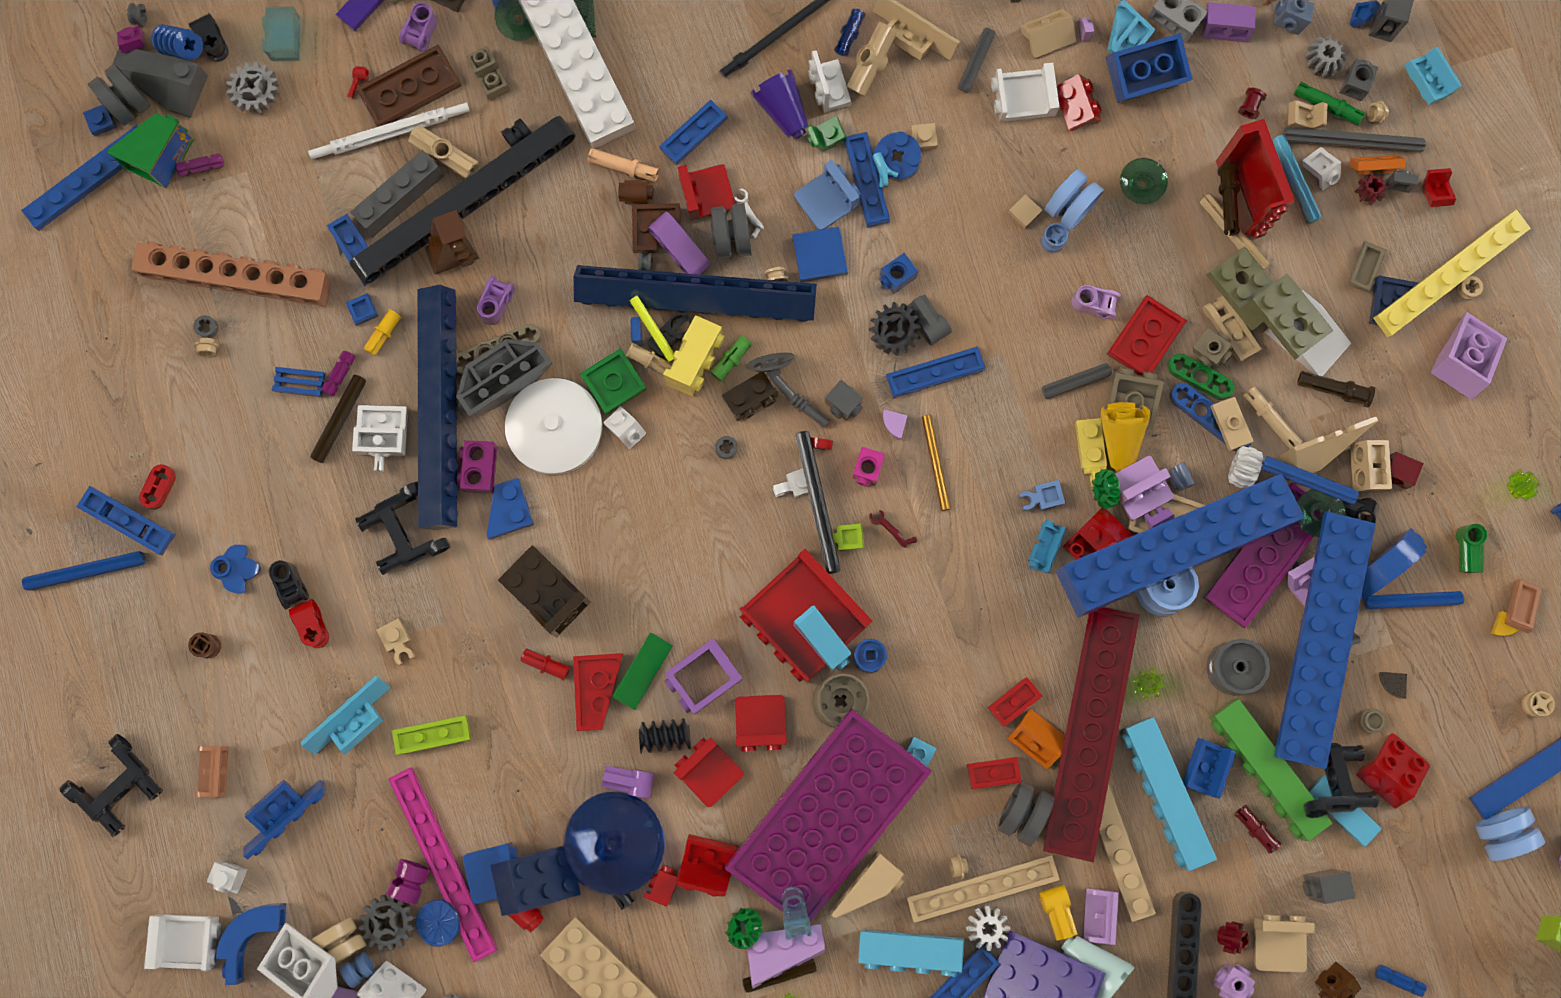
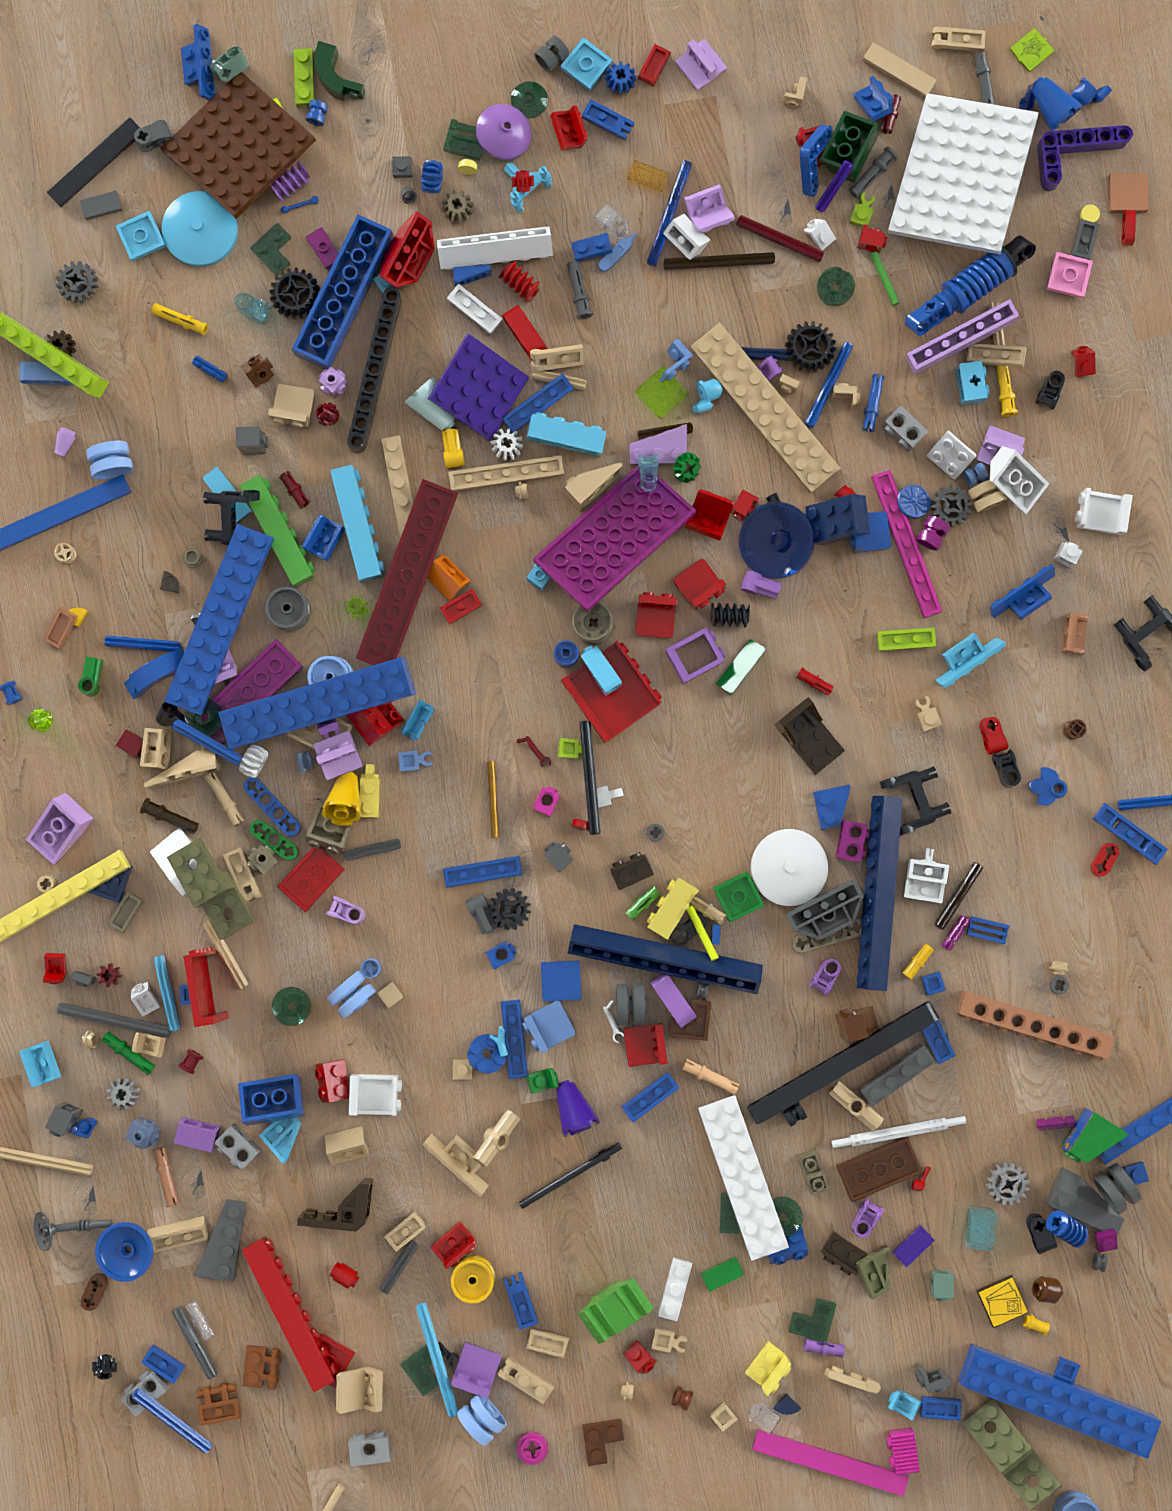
camera: 175 degrees left, 5 degrees up
(240, 931) = (1049, 519): blue arch -> none
(594, 687) = (779, 658): red wing -> none
(625, 427) = (733, 858): white bracket -> none
(635, 192) = (703, 1051): reddish brown brick -> none
(771, 365) = (609, 890): dark grey dish -> none
(776, 274) = (598, 966): tan bush -> none
(829, 83) = (532, 1124): white bracket -> none
(849, 32) = (510, 1167): clear blue pin -> none
(894, 423) = (520, 834): lavender tile -> none
(976, 60) = (409, 1130): dark grey axle -> none
(994, 773) = (484, 555): red plate -> none
(1025, 813) = (466, 521): dark grey wheel -> none
(1086, 29) = (315, 1144): lavender tile -> none
(1100, 916) = (422, 442): lavender hinge -> none
(1107, 482) = (365, 757): green gear -> none
(1229, 189) = (224, 990): dark brown pin -> none
(1232, 423) = (257, 797): tan plate -> none
(1354, 87) = (107, 1066): dark grey brick -> none
(1386, 164) = (99, 996): orange plate -> none
(1395, 772) = (183, 518): red bracket -> none

